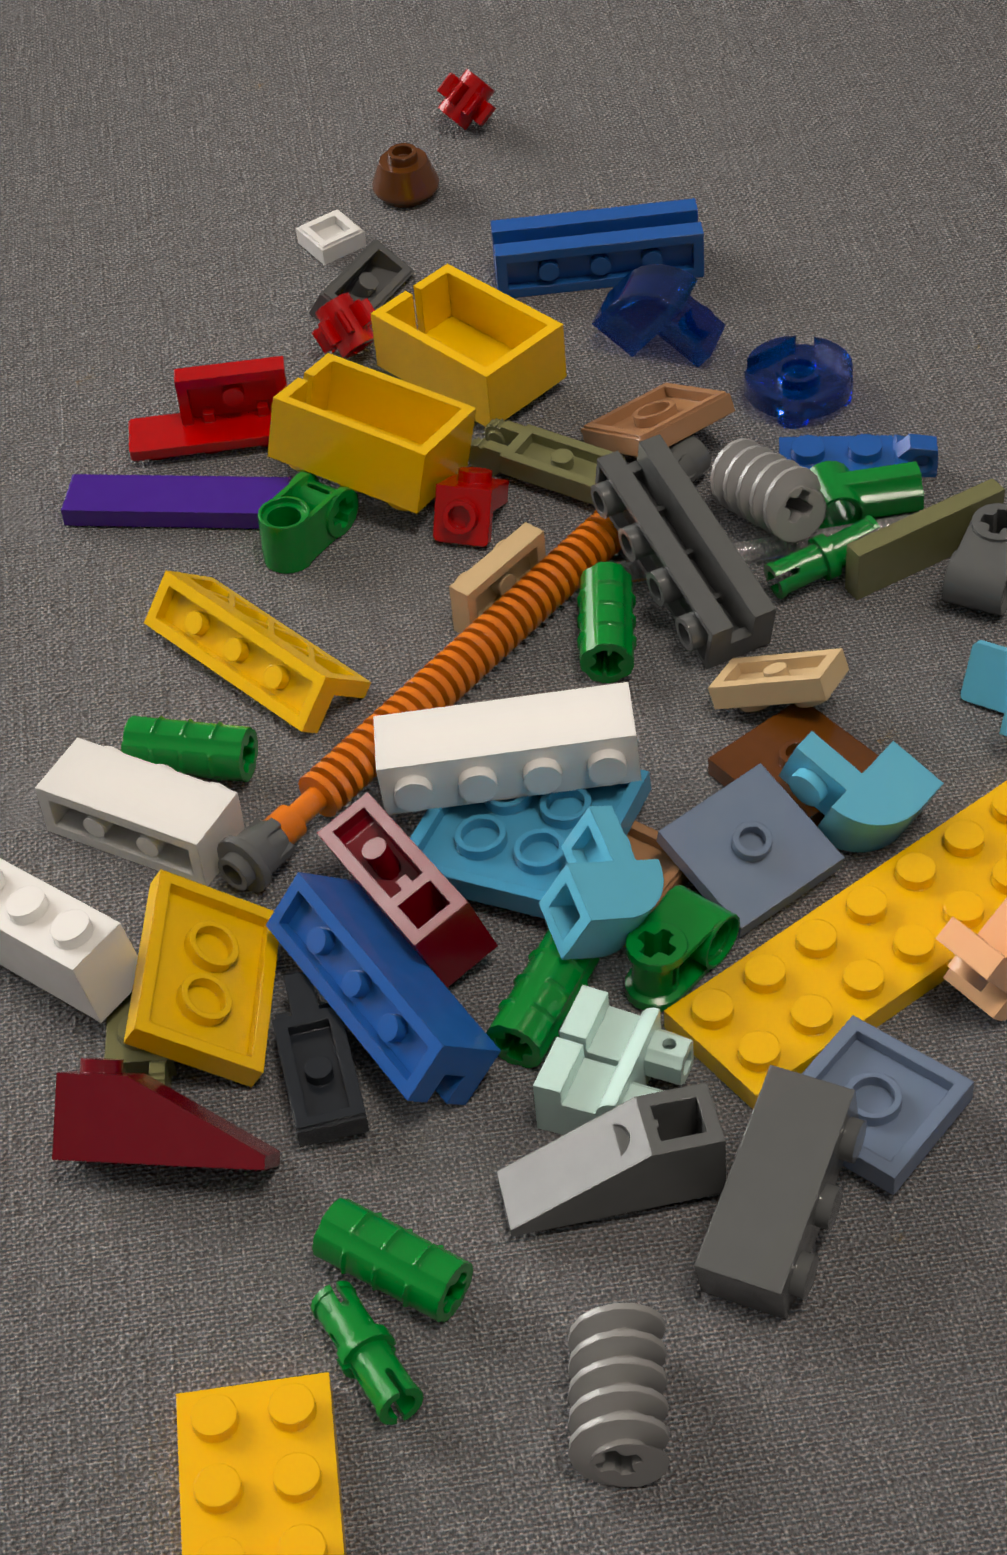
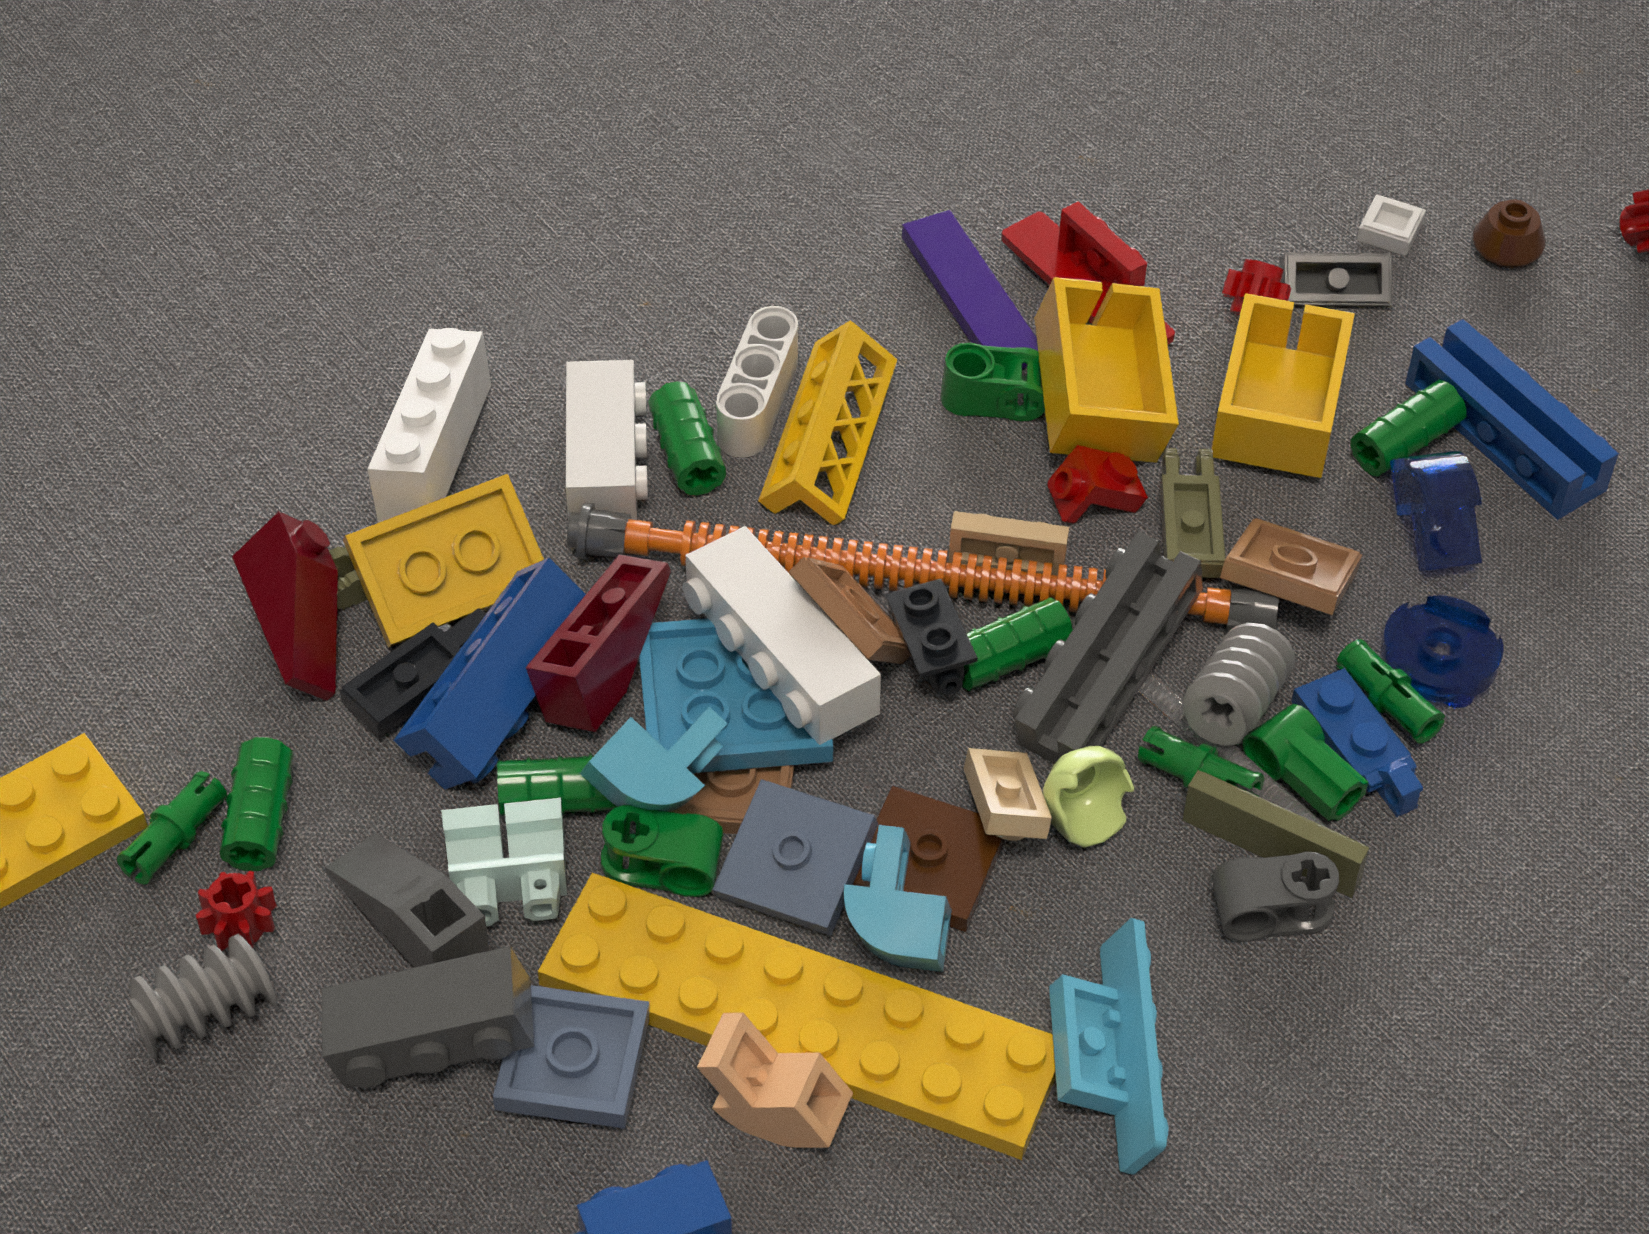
camera: 55 degrees right, 5 degrees up
(162, 667) = (757, 381): none -> white beam
(510, 681) = (852, 610): none -> medium nougat tile
(522, 1325) = (236, 907): none -> red gear
(558, 655) = (933, 634): none -> black hinge
(561, 297) = (1408, 427): none -> green axle
(802, 624) = (1087, 795): none -> yellowish green hair
(821, 420) = (1391, 691): none -> green pin

